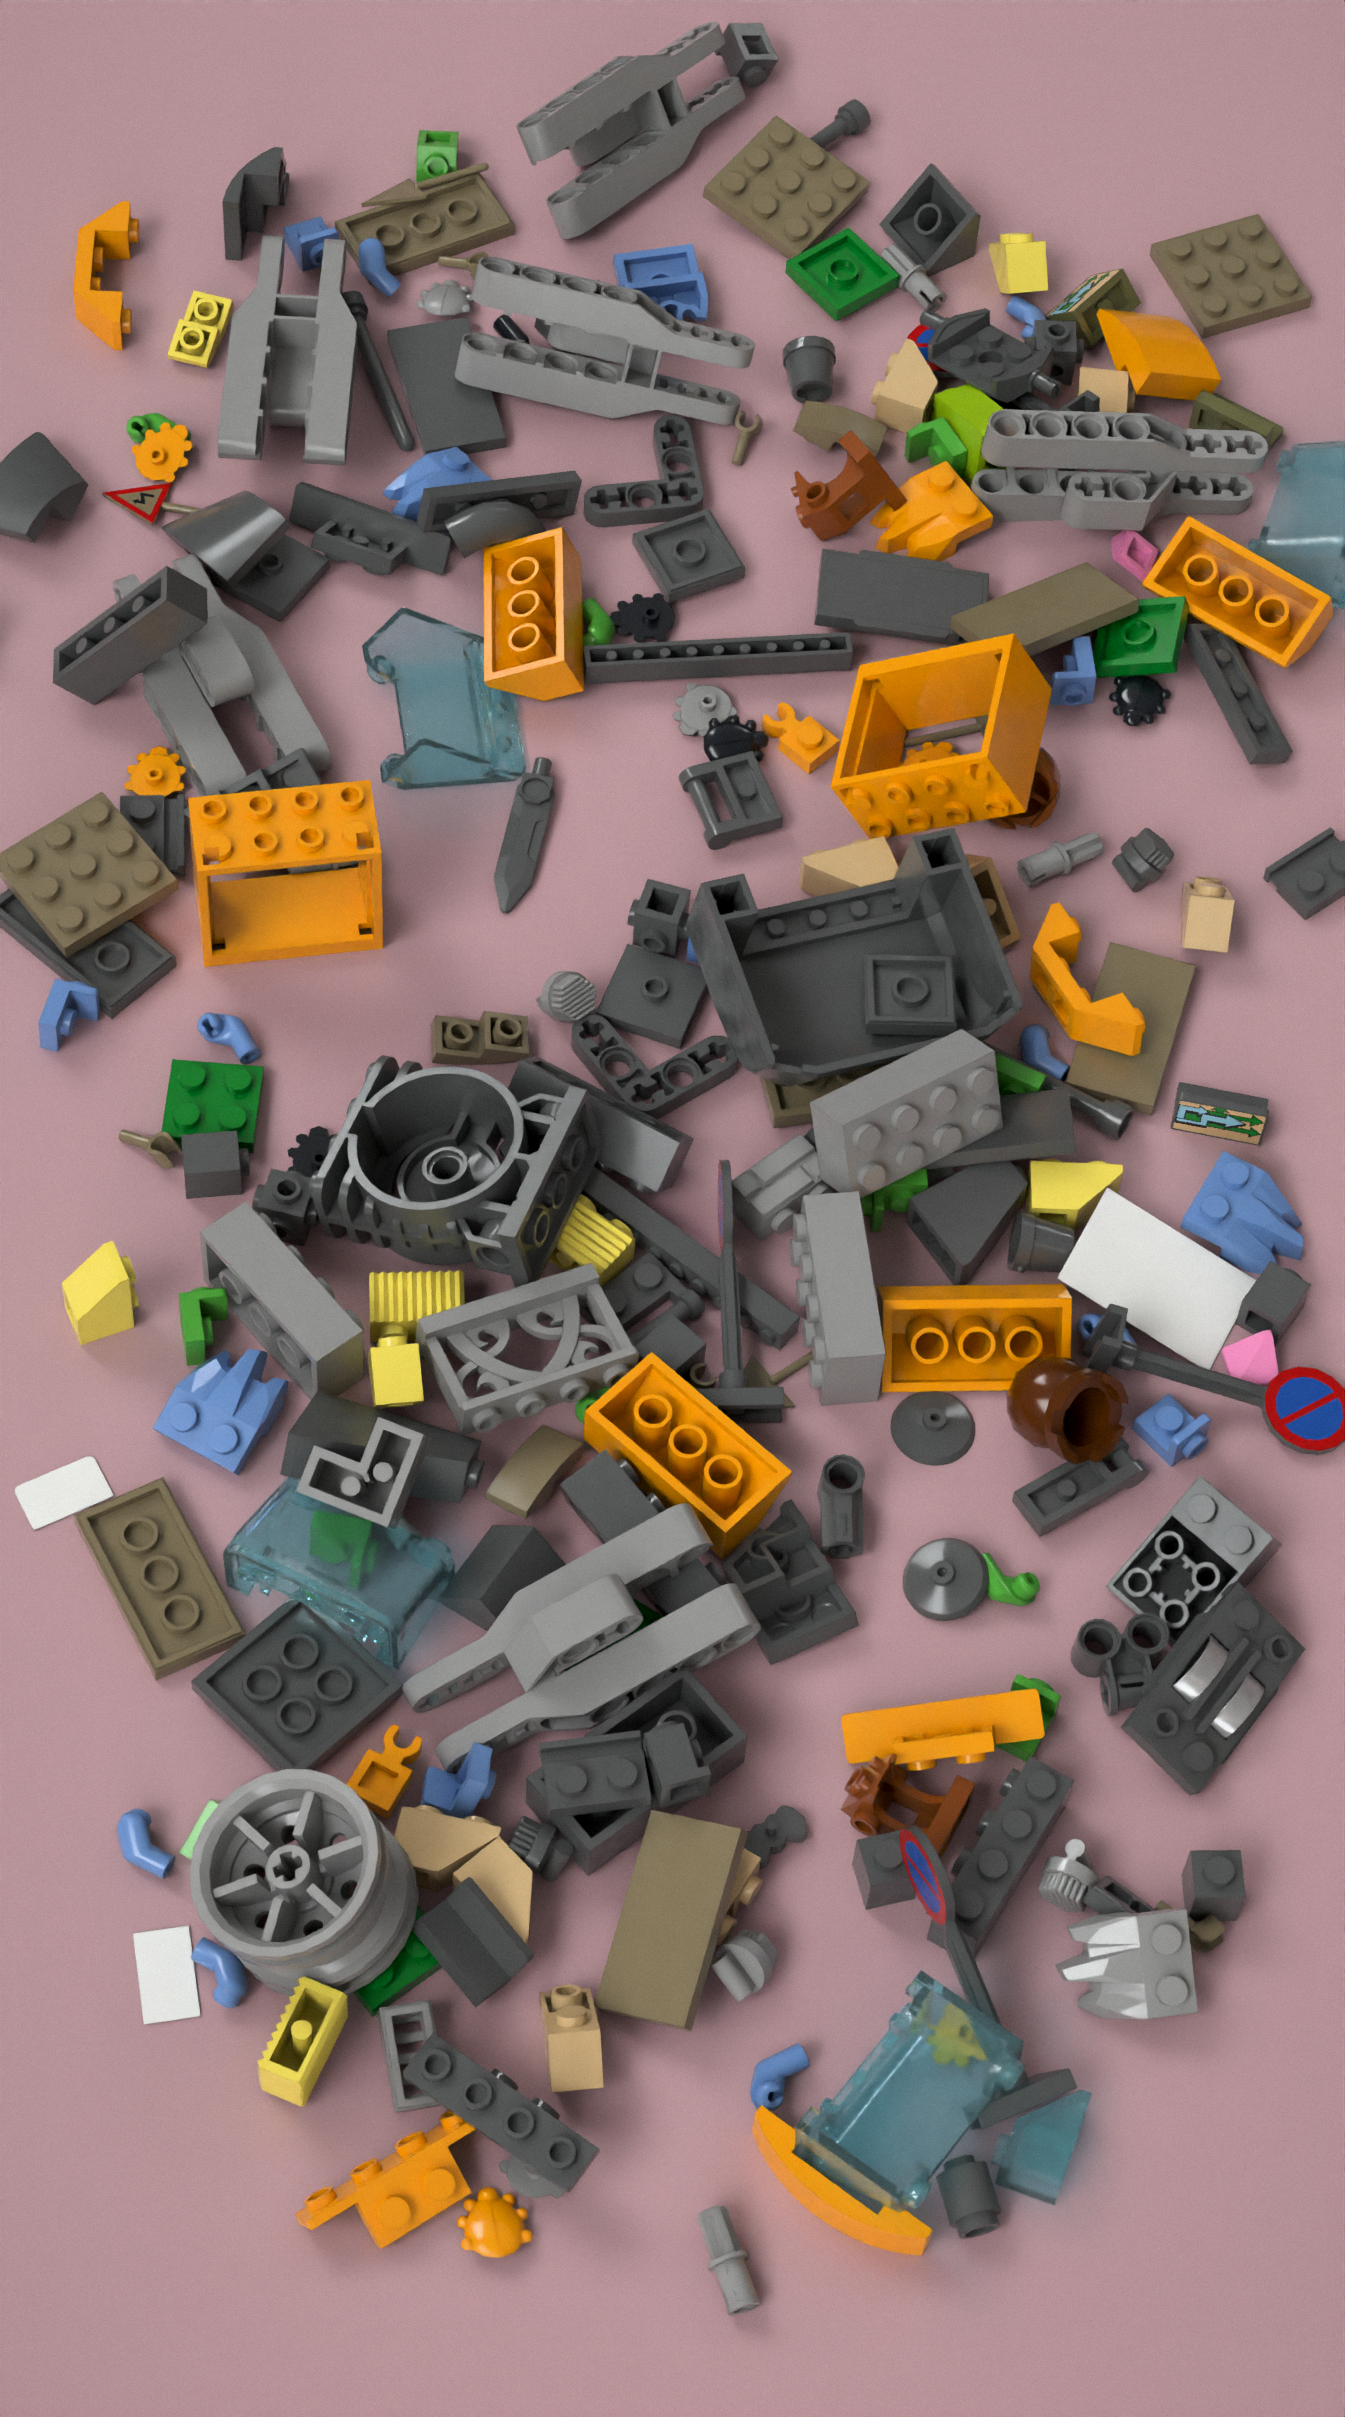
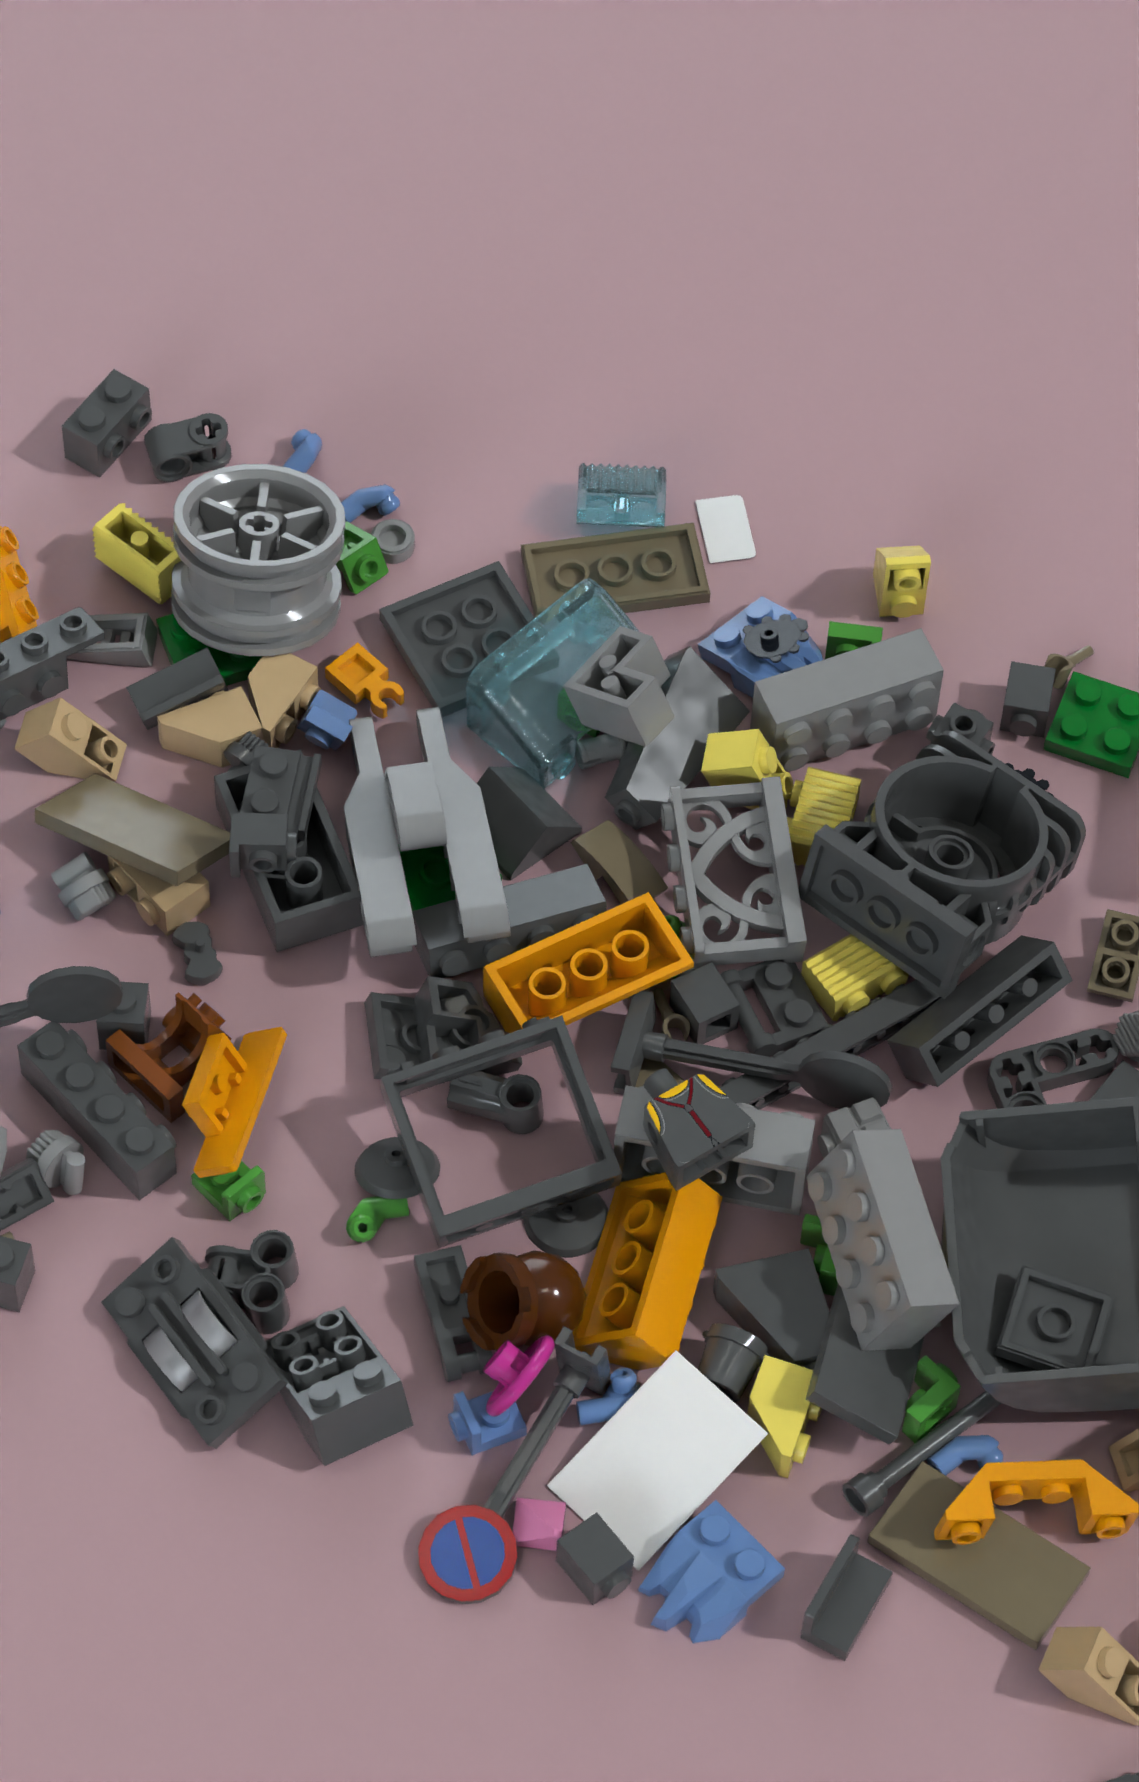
camera: 110 degrees right, 0 degrees up
(70, 1583) = (621, 495): none -> clear light blue brick
(94, 1924) = (306, 450): none -> medium blue arm
(120, 2145) = (106, 423): none -> dark grey brick
(130, 2056) = (185, 450): none -> dark grey piece
(182, 1805) = (395, 540): none -> light grey tile
(224, 1383) = (775, 637): none -> piece
(867, 1278) = (693, 1126): none -> dark grey torso
(943, 1427) = (525, 1202): none -> dark grey window
(1149, 1386) = (515, 1371): none -> dark pink piece

